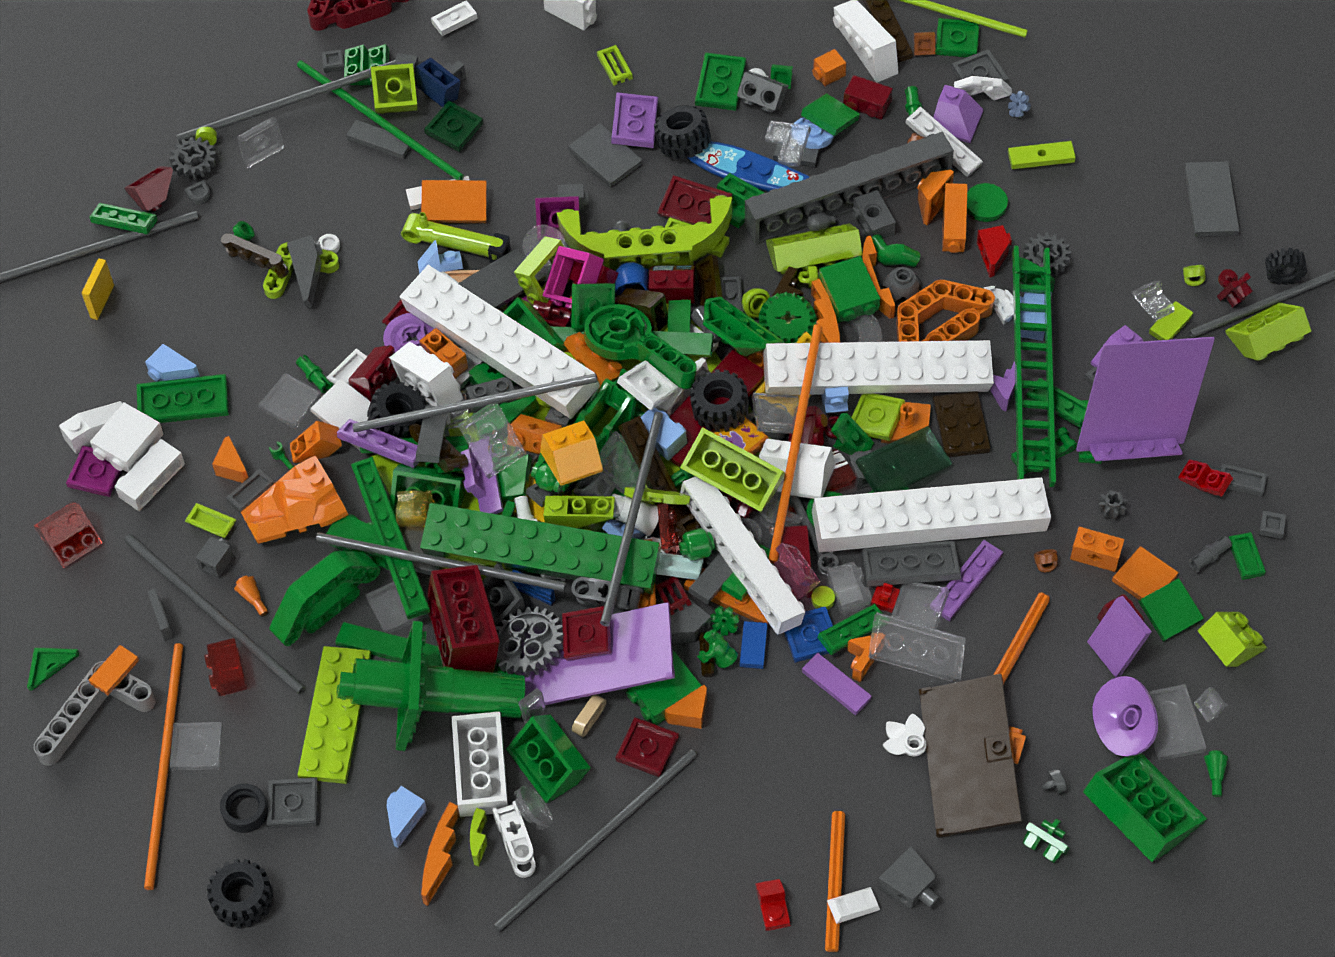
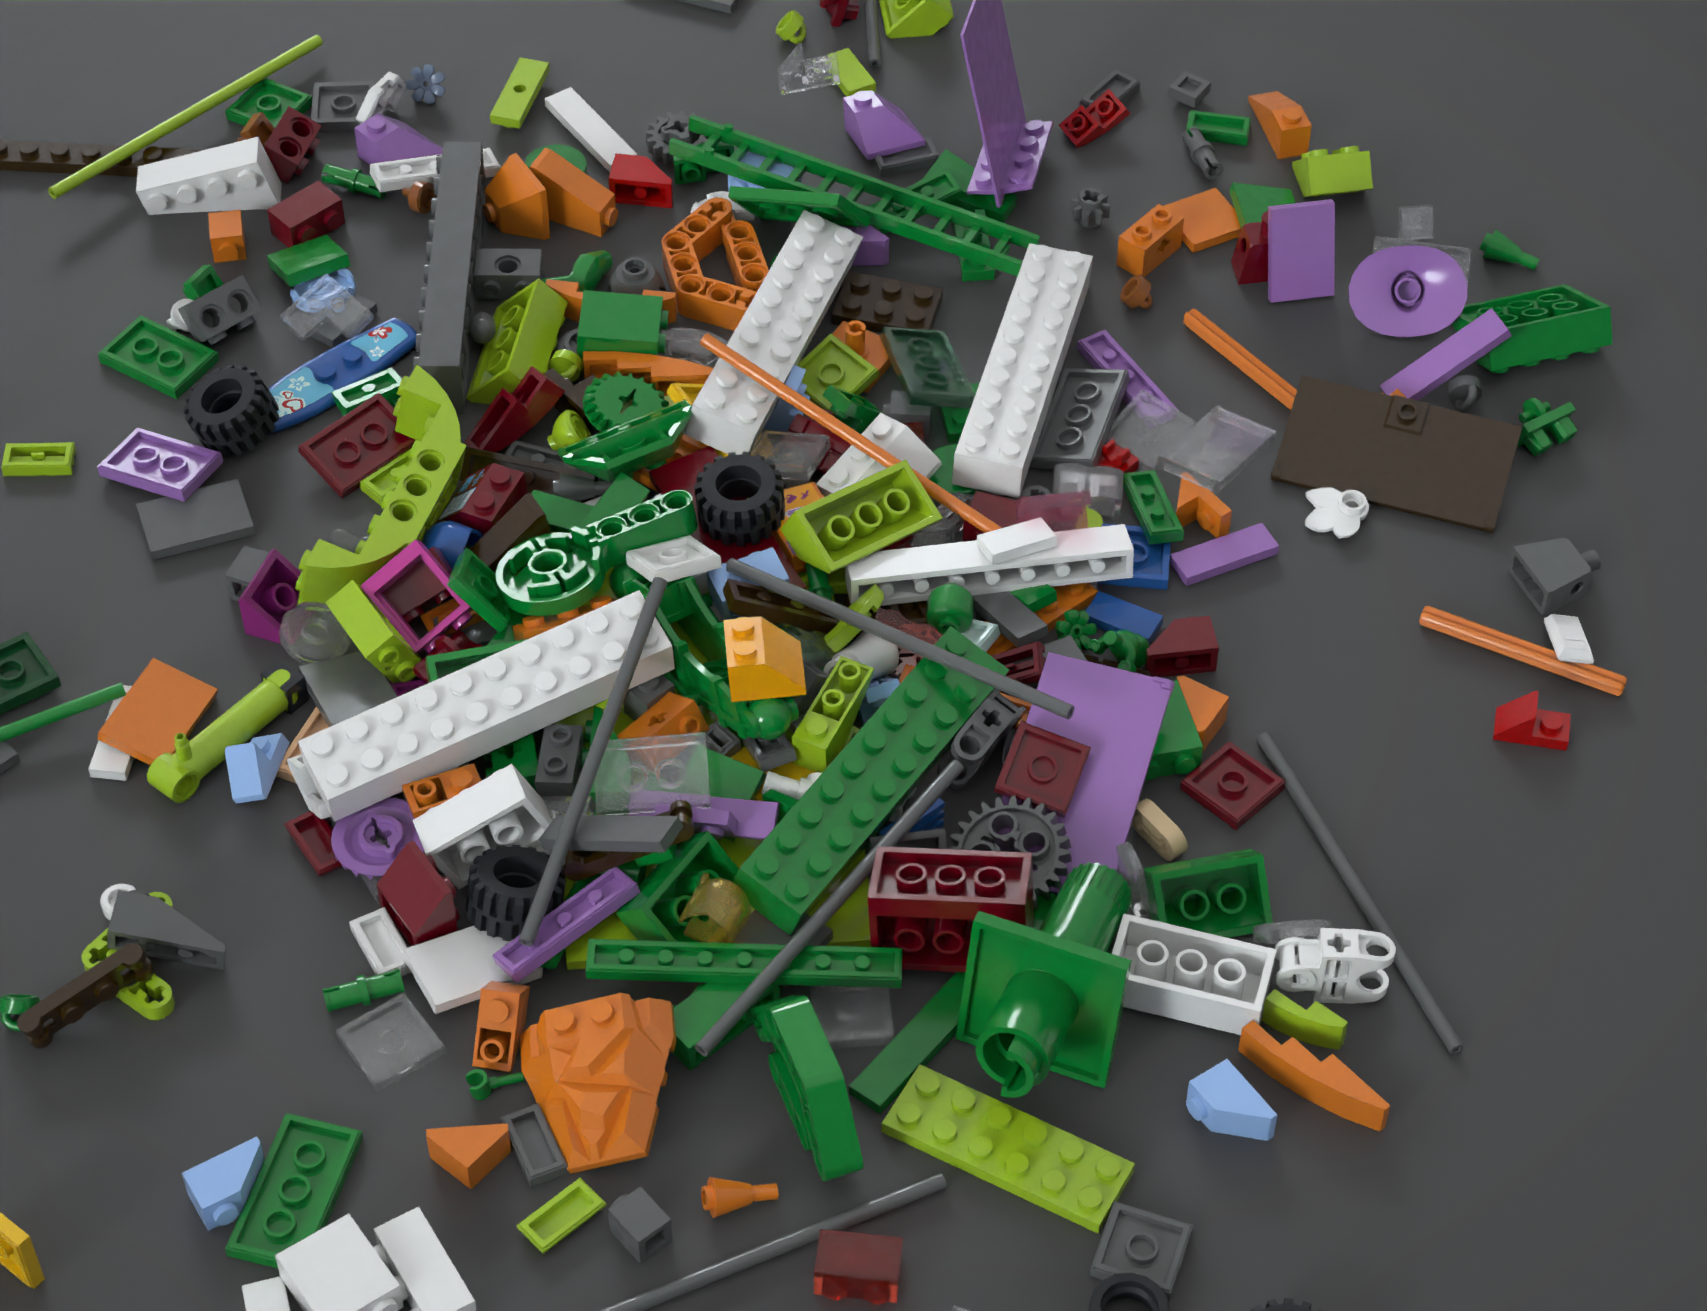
camera: 70 degrees left, 10 degrees down
(740, 683) = (1184, 648): none -> dark red slope
(754, 266) = (515, 412): none -> dark red slope
(755, 556) = (1016, 540): none -> white tile
(918, 55) = (290, 142): none -> dark red brick
(999, 338) = (789, 205): none -> green tile
(1033, 205) = (587, 126): none -> white tile
(1065, 757) = (1449, 357): none -> medium lavender tile
(1271, 590) = (1282, 123): none -> orange slope

